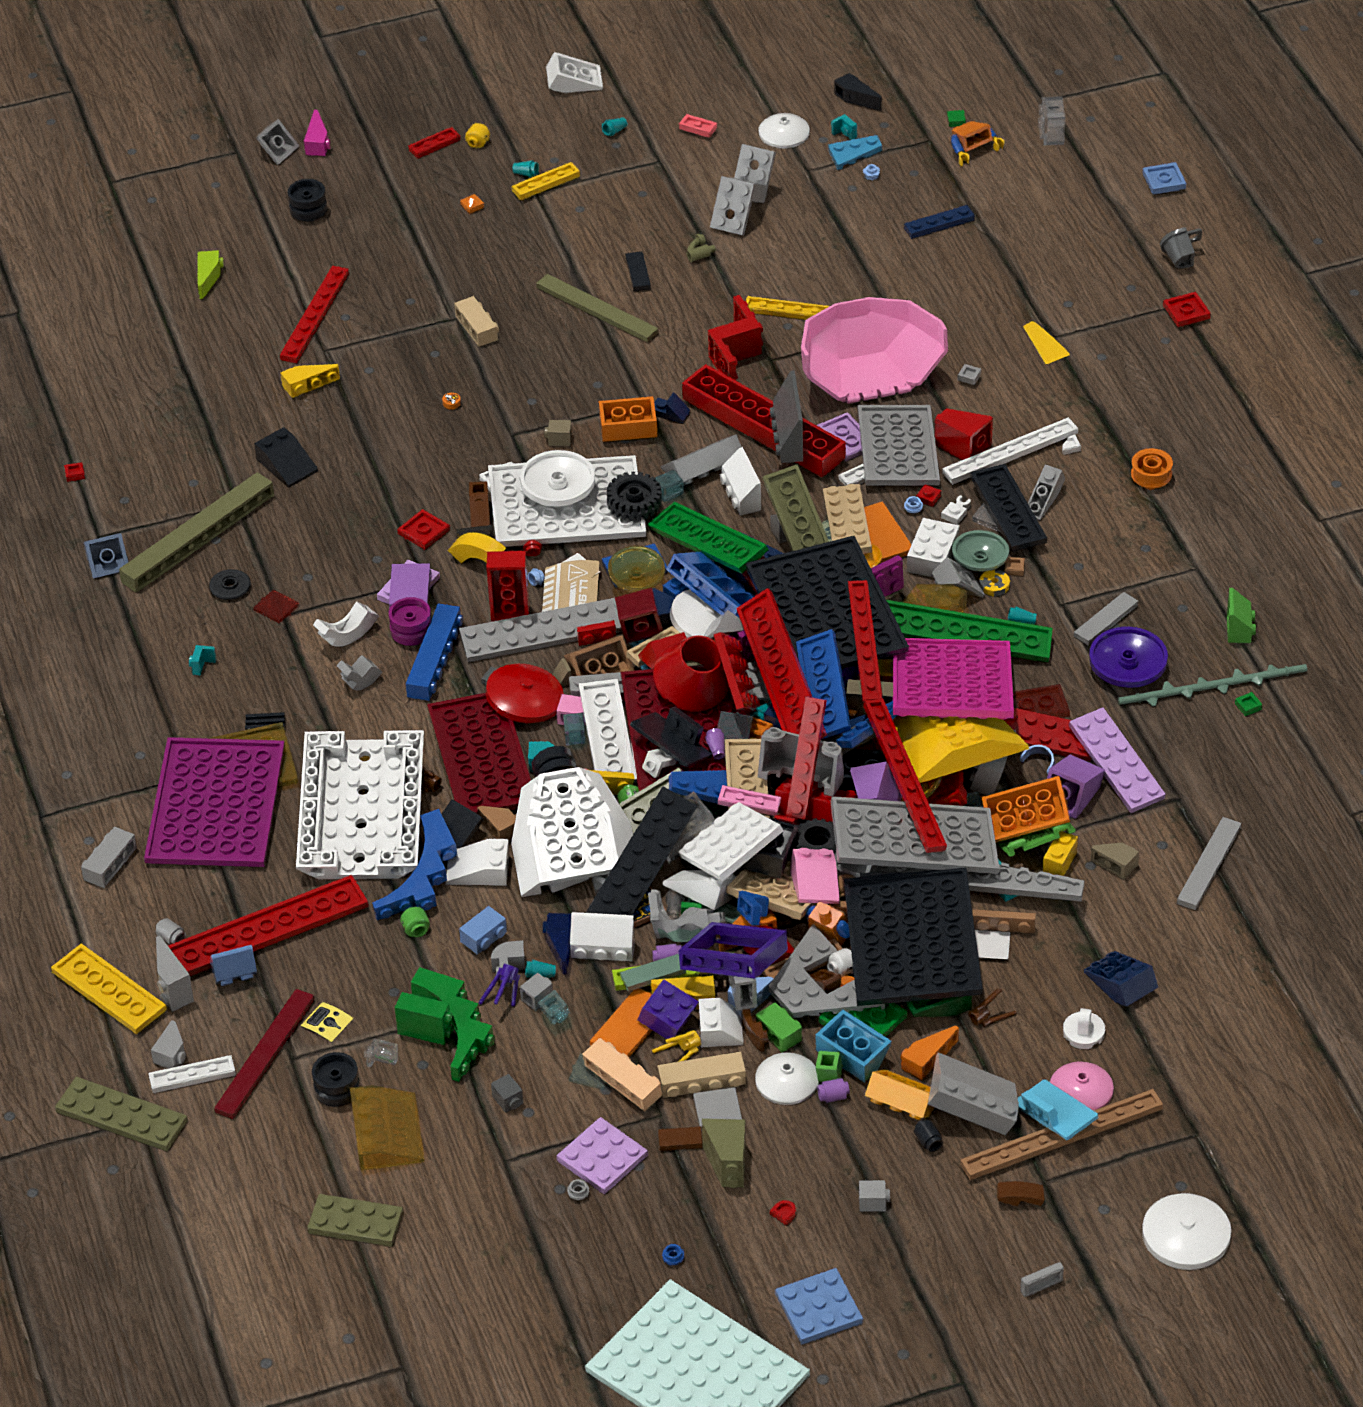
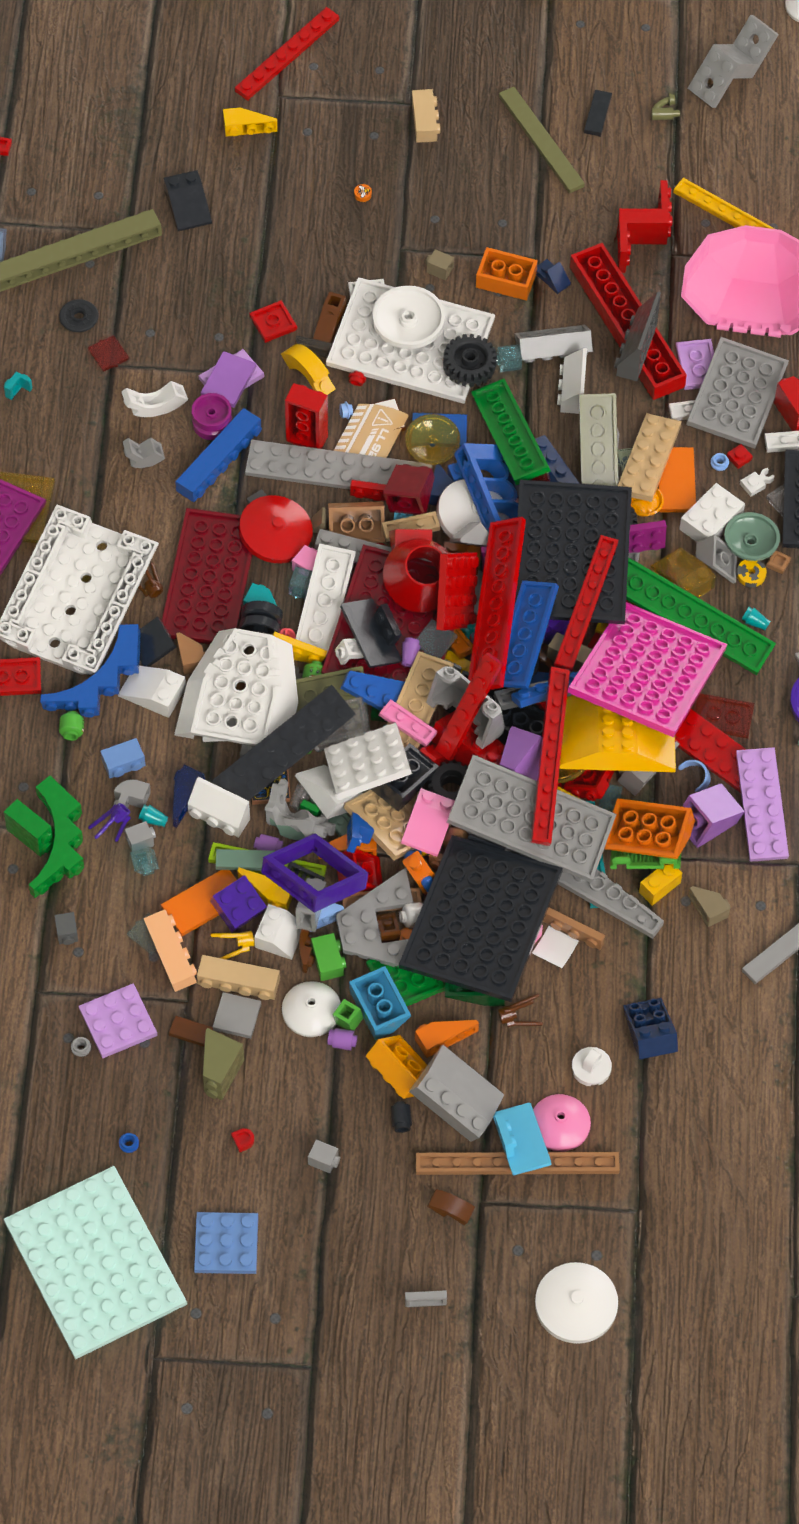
camera: 20 degrees right, 15 degrees up
(264, 719) = (43, 468): black tile -> none

